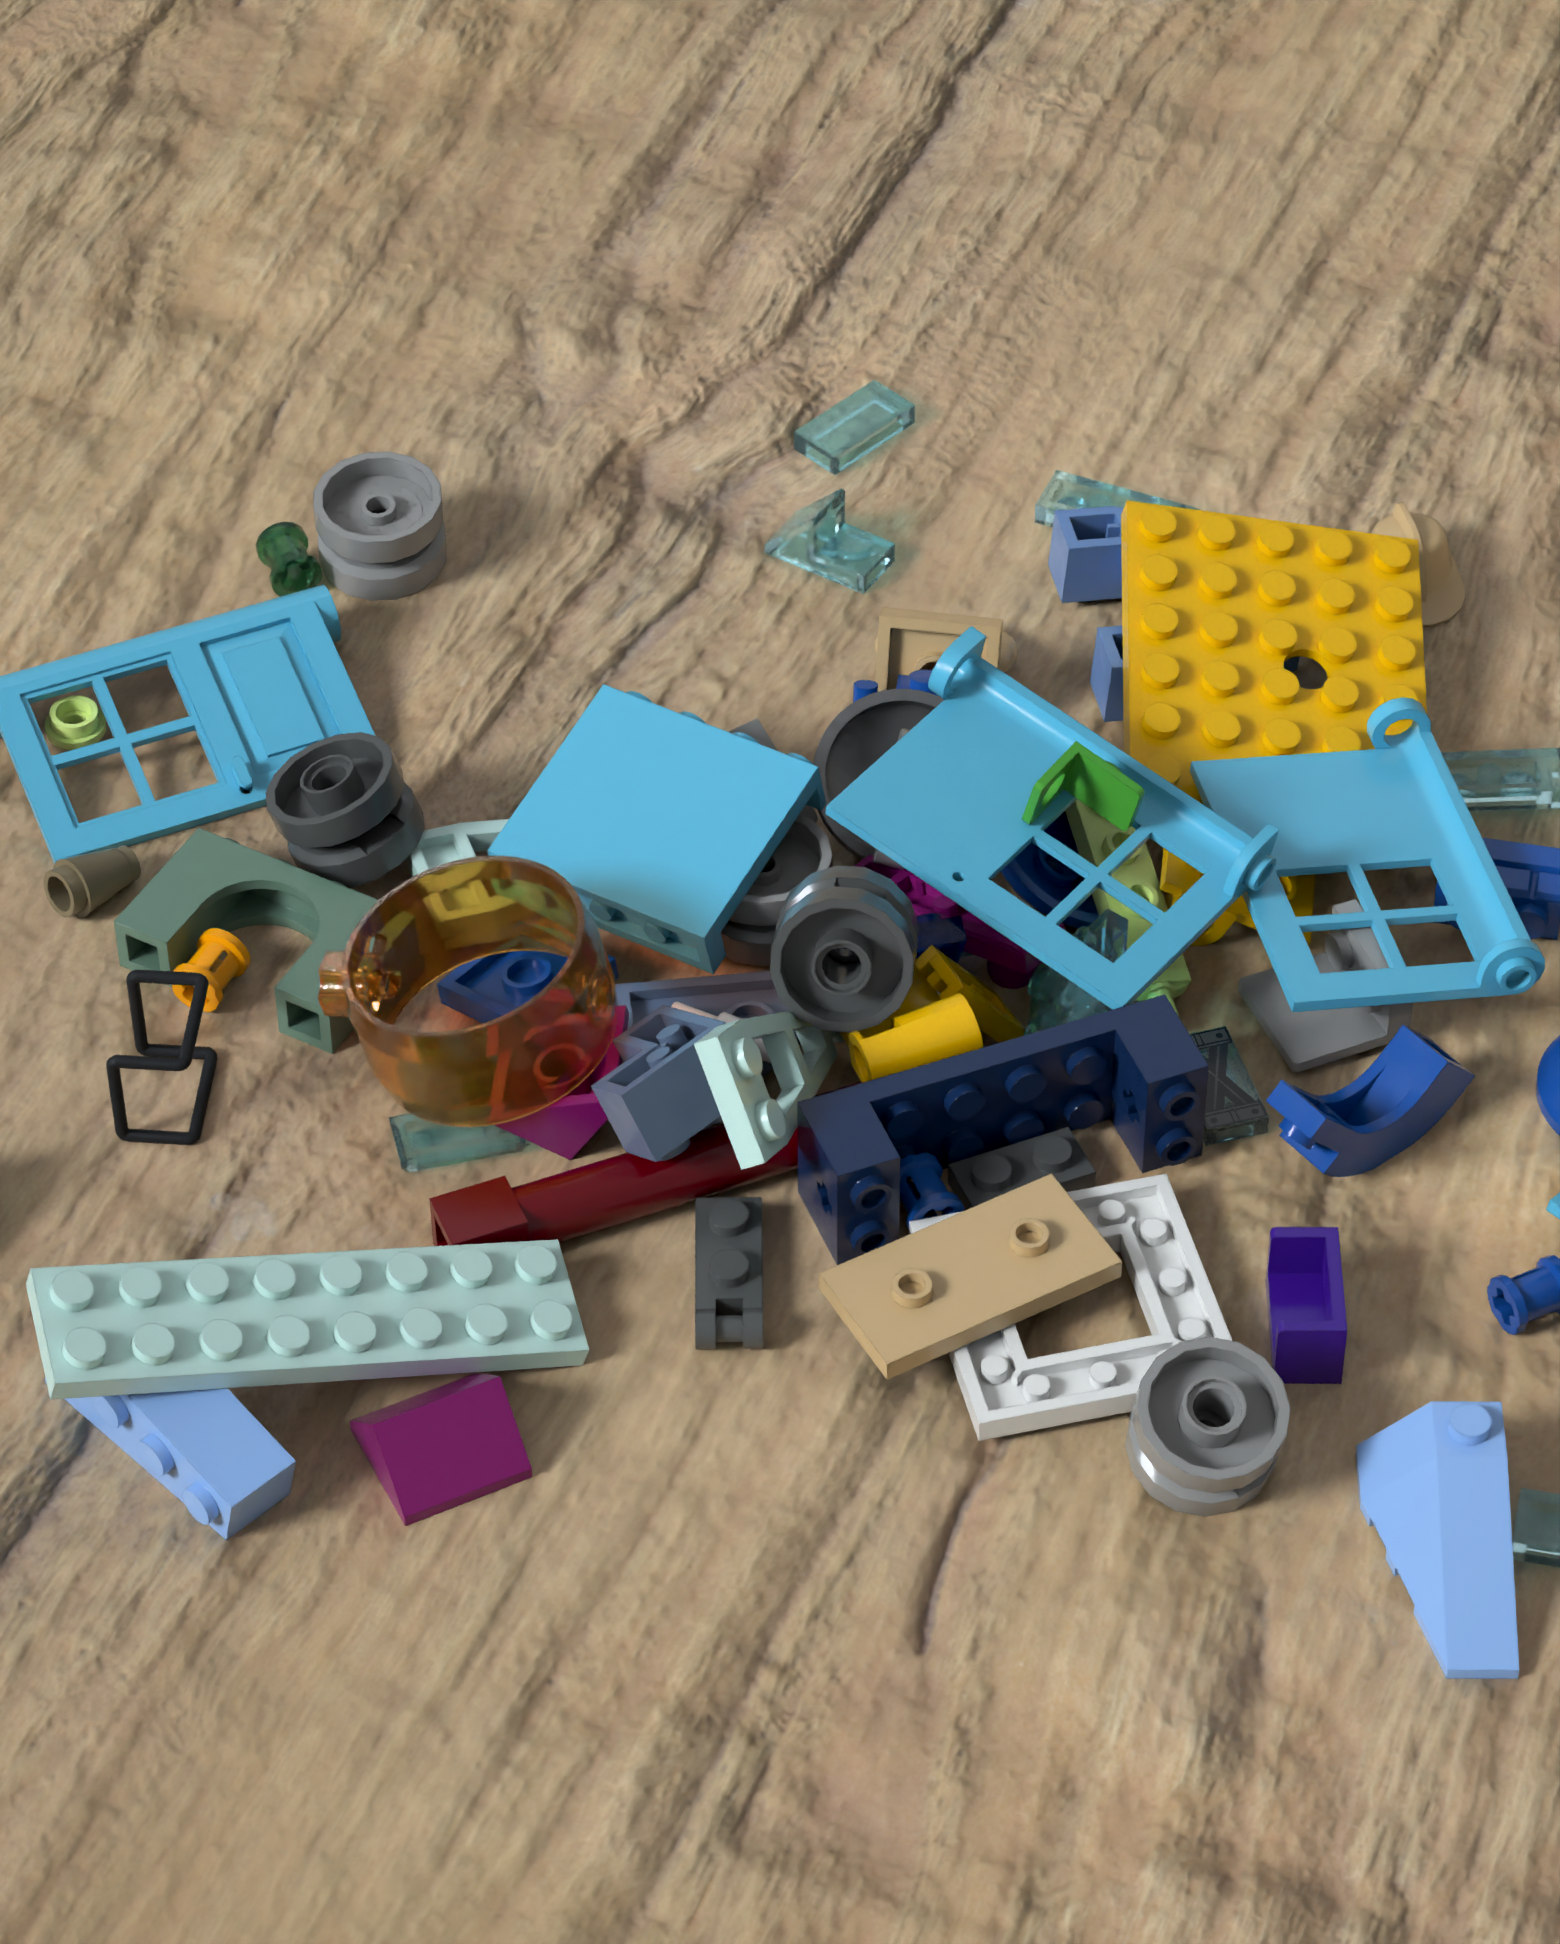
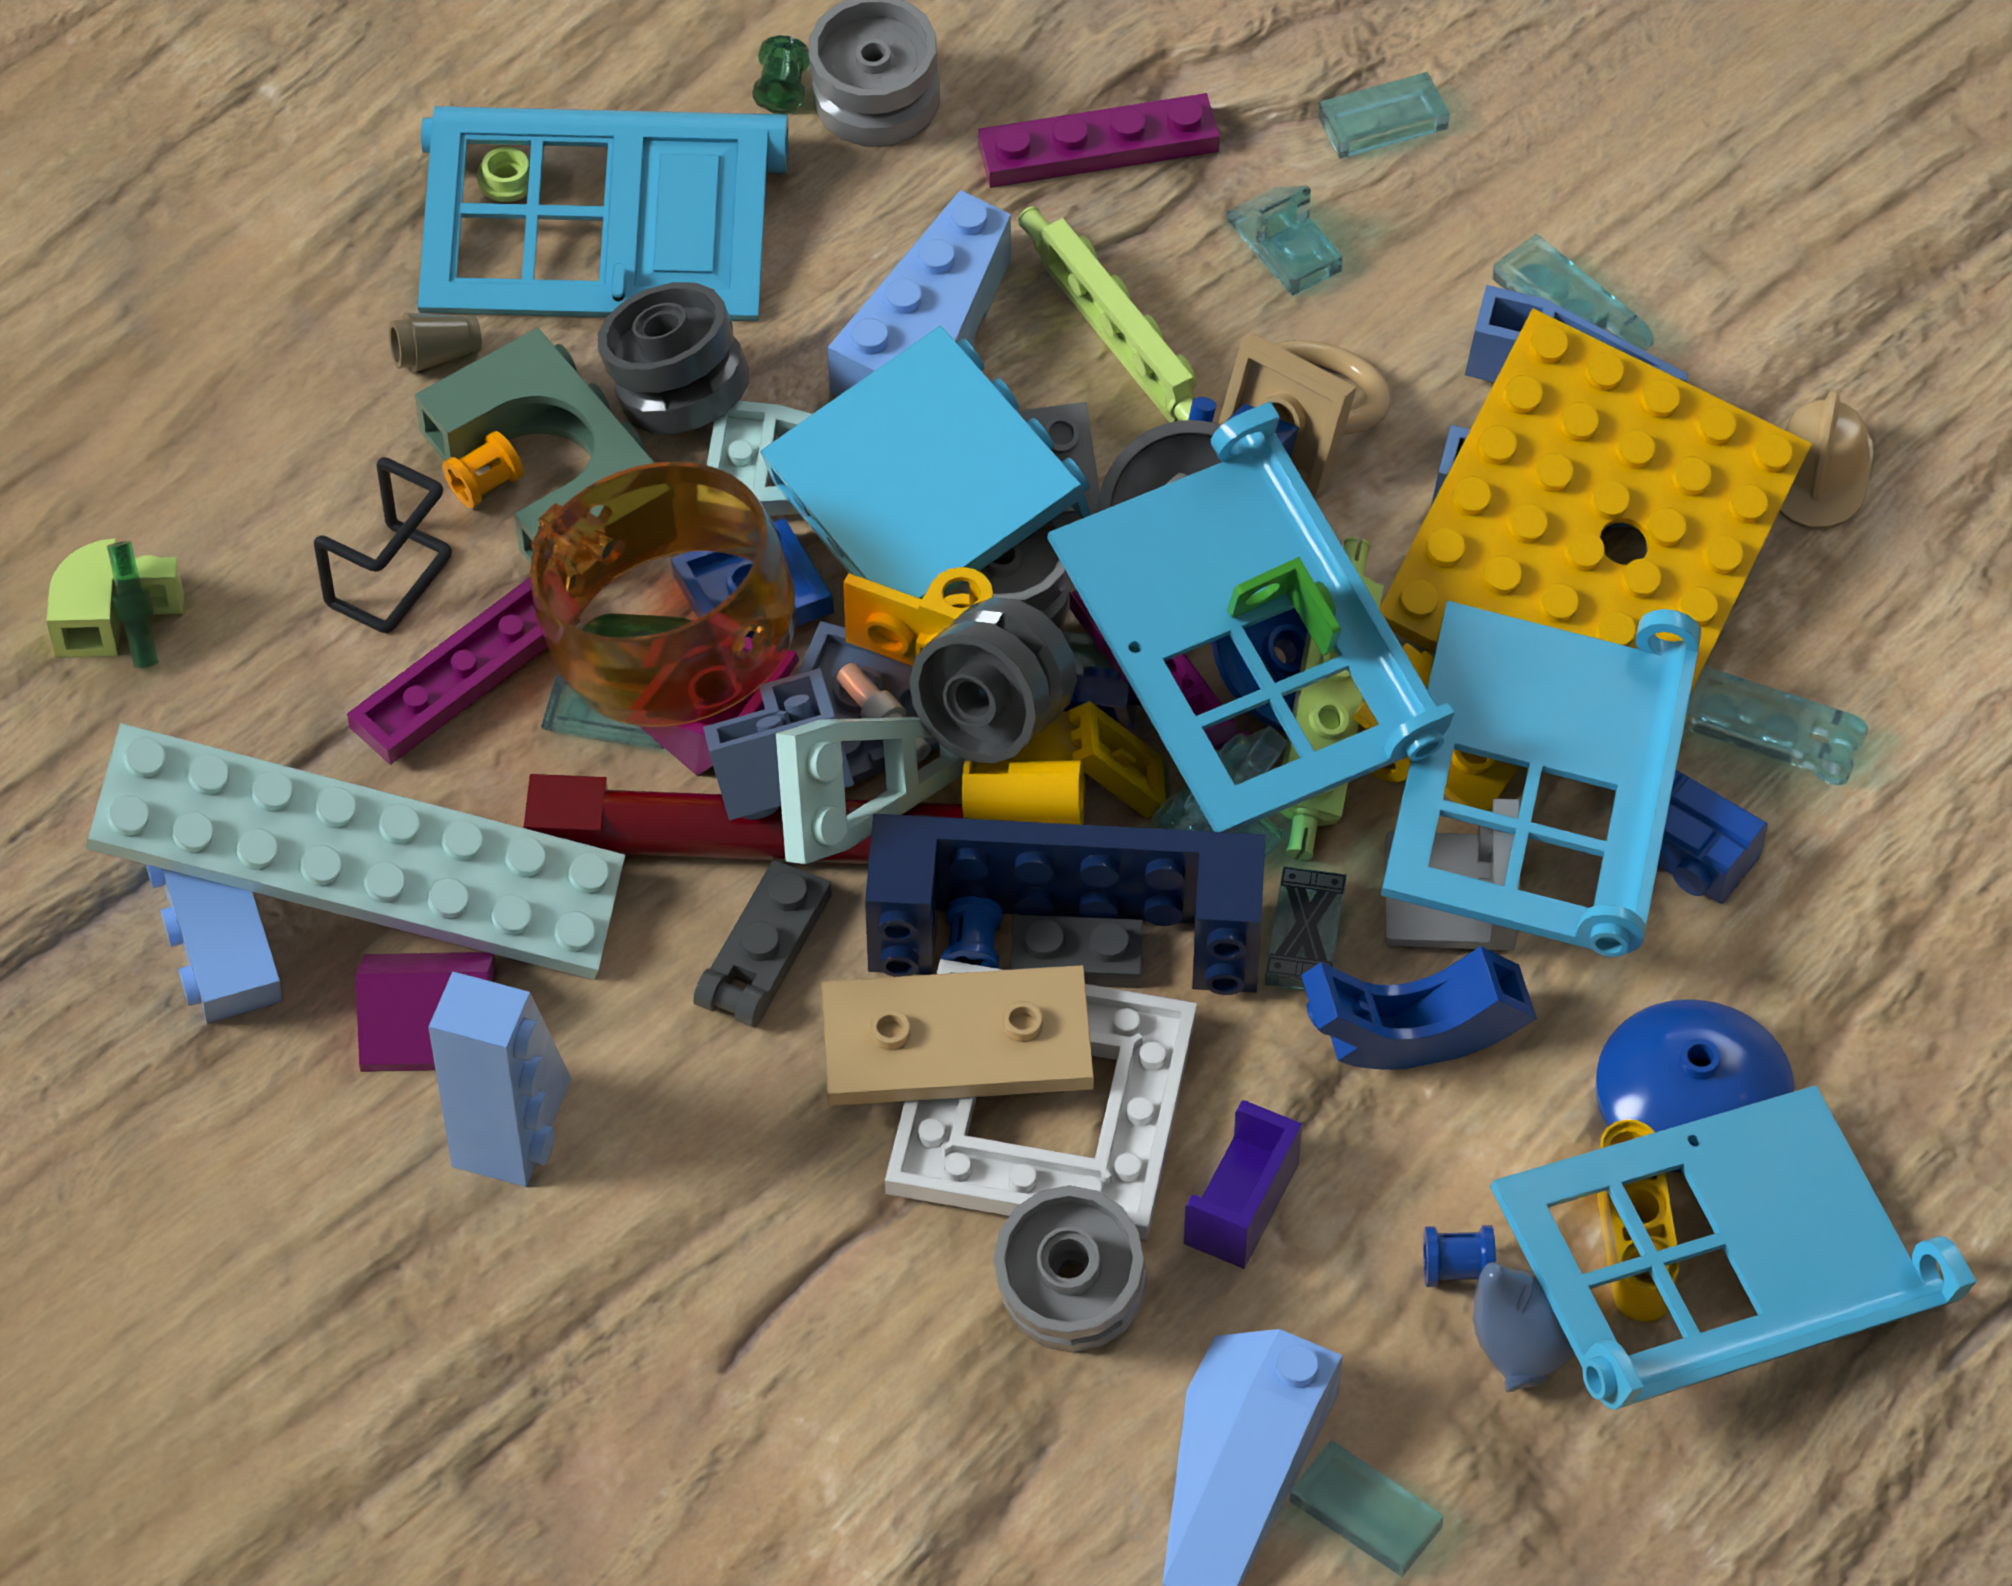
camera: 25 degrees right, 10 degrees up
(293, 1144) = (450, 676): none -> magenta plate
(545, 690) = (940, 281): none -> light blue wedge
(582, 1451) = (496, 1078): none -> light blue wedge
(611, 525) = (1098, 140): none -> magenta plate
(720, 945) = (903, 624): none -> yellow piece
(723, 654) = (1108, 309): none -> yellowish green plate

